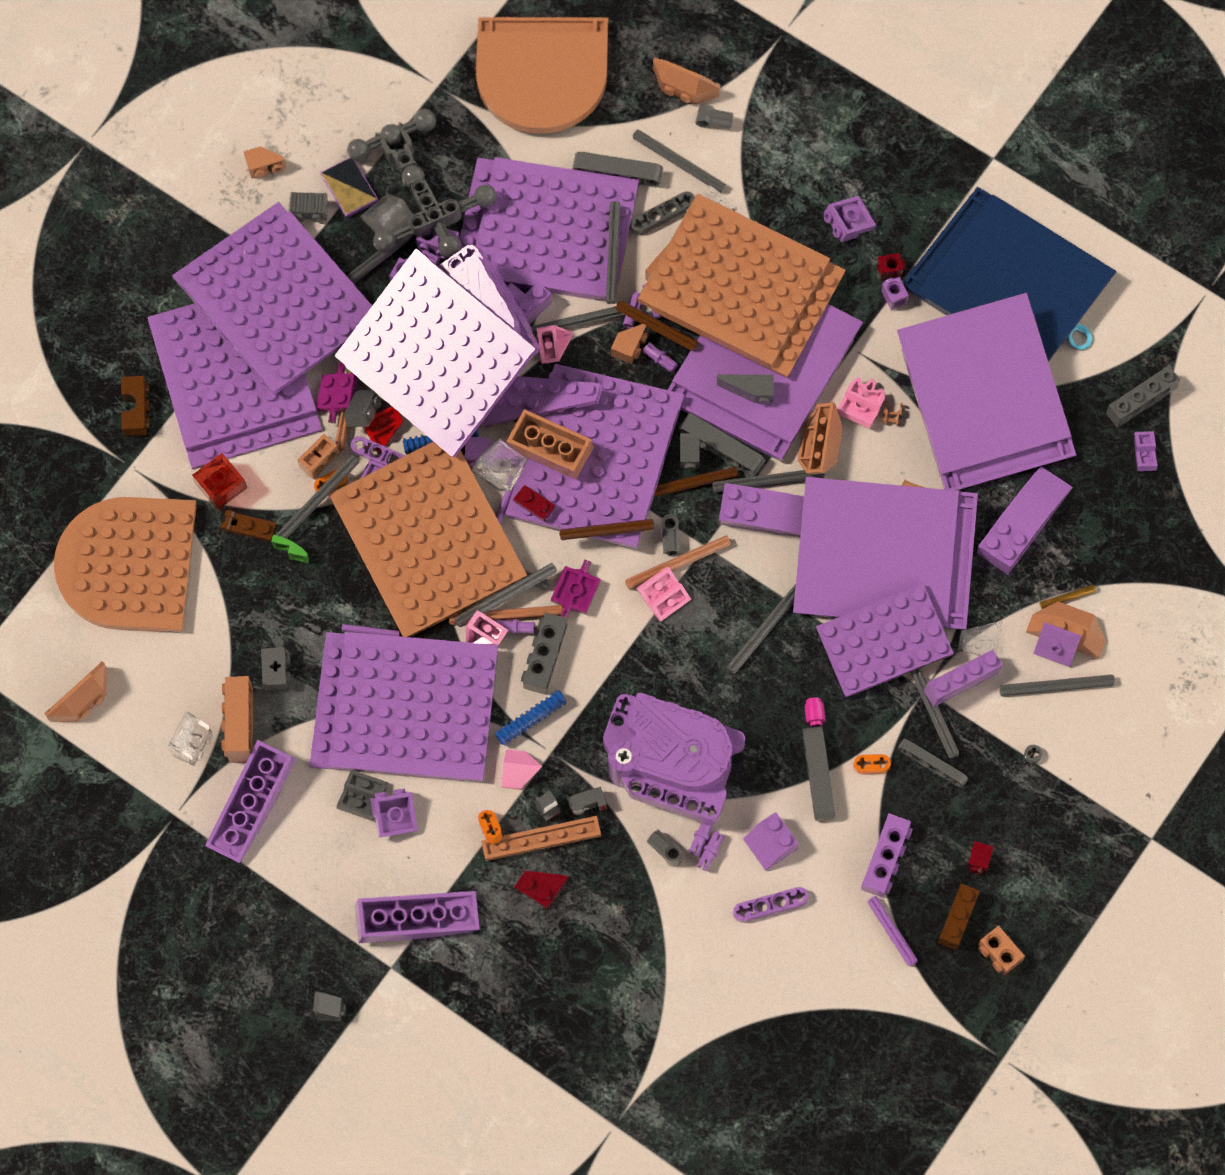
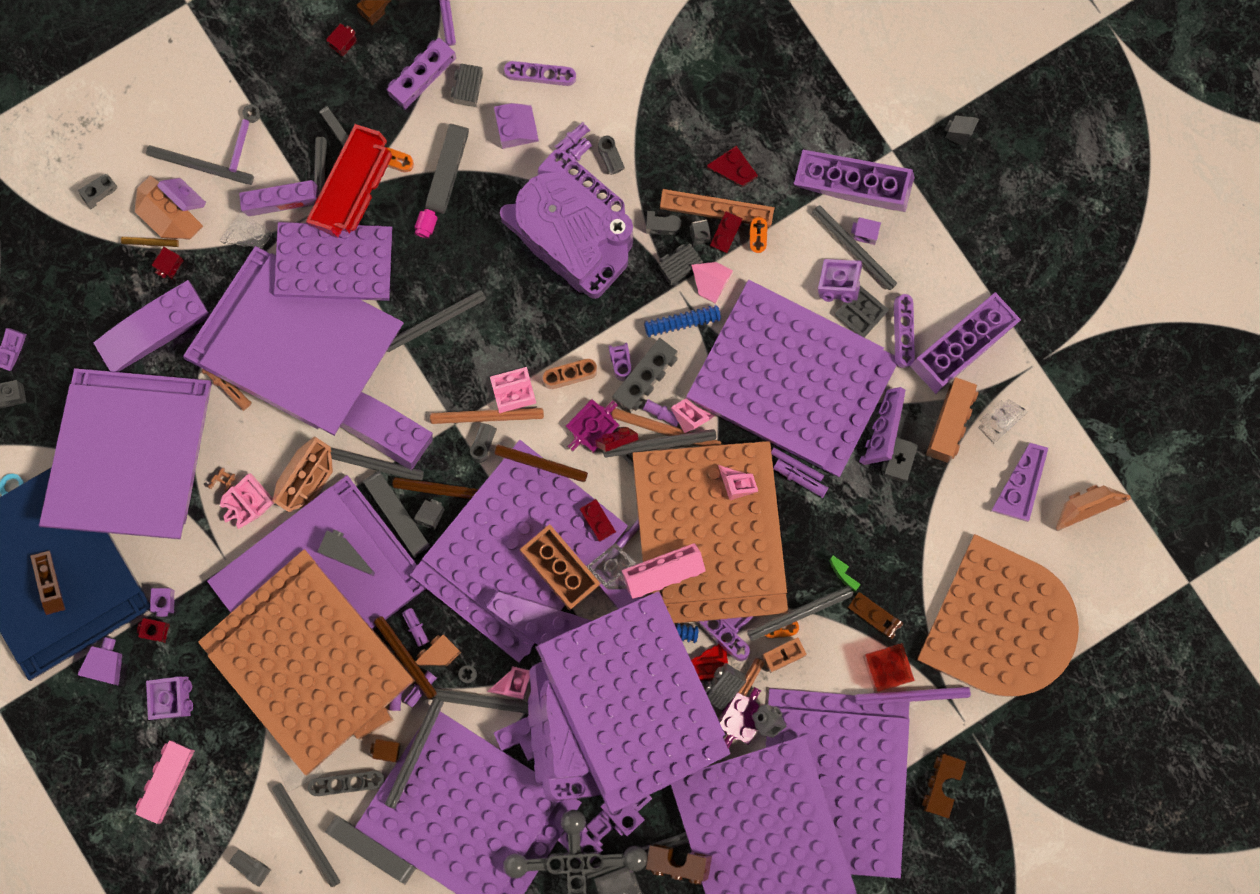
camera: 160 degrees left, 10 degrees up
(151, 684) = (1021, 488): none -> medium lavender wing
(186, 470) = (910, 696): none -> medium lavender axle
(298, 690) = (885, 428): none -> medium lavender wing
(310, 393) = (769, 720): none -> dark grey brick
(311, 793) = (907, 331): none -> medium lavender beam
(358, 247) = (661, 861): none -> reddish brown arch
(362, 618) = (800, 478): none -> medium lavender pin
(386, 872) = (866, 230): none -> medium lavender brick
(392, 853) = (854, 248): none -> dark grey axle
(418, 582) = (737, 483): none -> bright pink slope
(453, 472) = (663, 571): none -> bright pink brick
(522, 817) = (726, 231): none -> dark red plate
(547, 582) = (617, 439): none -> dark red plate
(555, 769) = (679, 264): none -> dark grey brick
(575, 661) = (620, 358): none -> medium lavender piece
(597, 333) = (473, 675): none -> dark grey bush
(618, 619) = (560, 372): none -> nougat beam
(640, 249) = (385, 750): none -> reddish brown brick
(819, 153) = (164, 782): none -> bright pink brick
(835, 861) = (467, 85): none -> dark grey brick
(902, 716) = (350, 182): none -> red slope
(920, 223) = (102, 663): none -> medium lavender torso
(1000, 262) = (47, 583): none -> reddish brown slope
(1028, 716) = (239, 145): none -> medium lavender bar
(1040, 580) = (167, 263): none -> dark red brick
(1140, 621) = (97, 190): none -> dark grey leg

